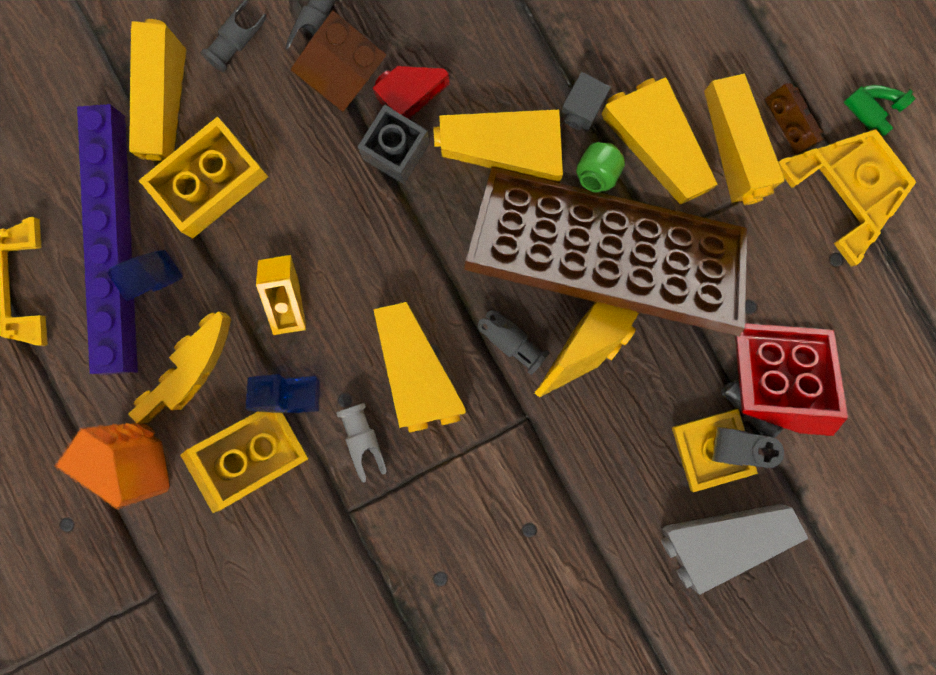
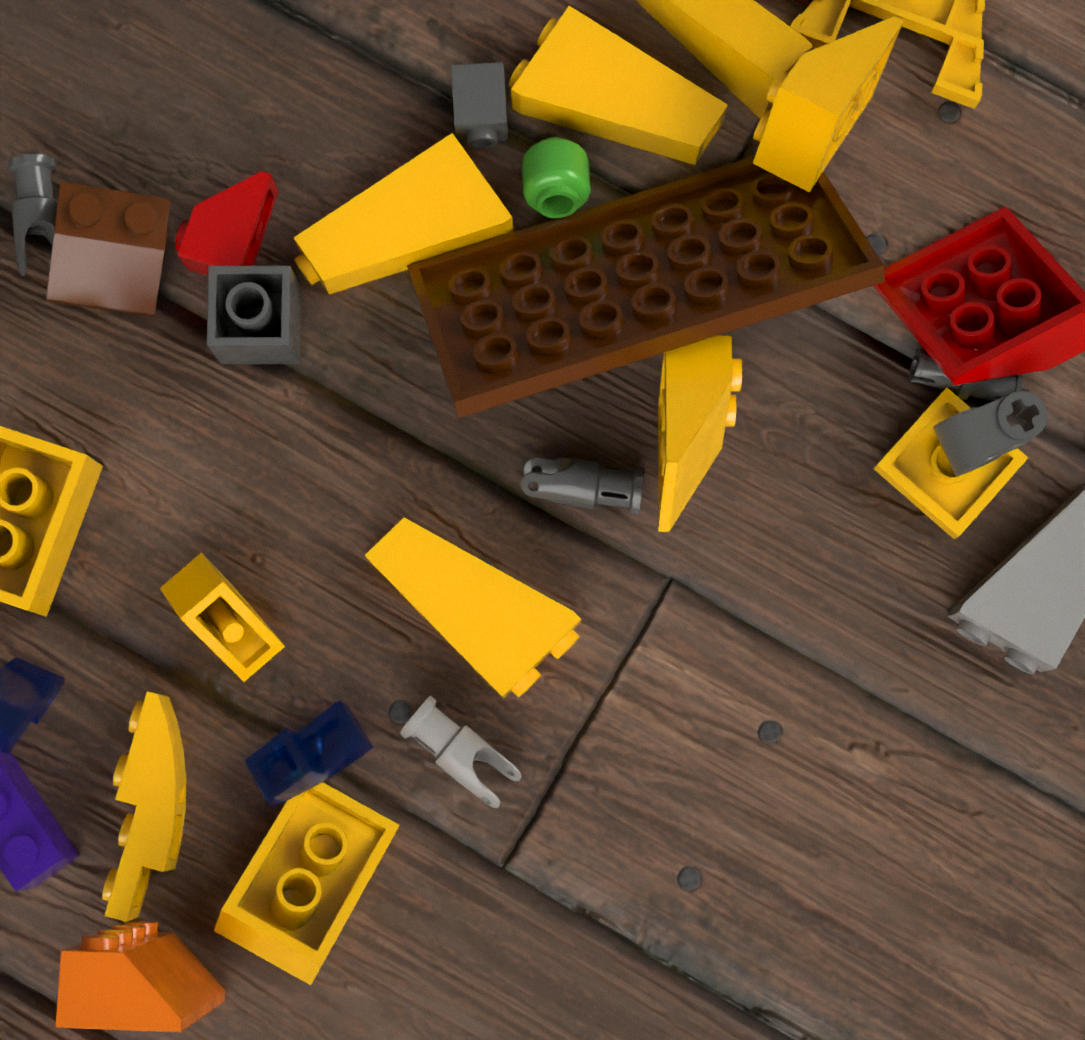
camera: 35 degrees left, 5 degrees down
(768, 215) = (821, 103): none -> yellow slope

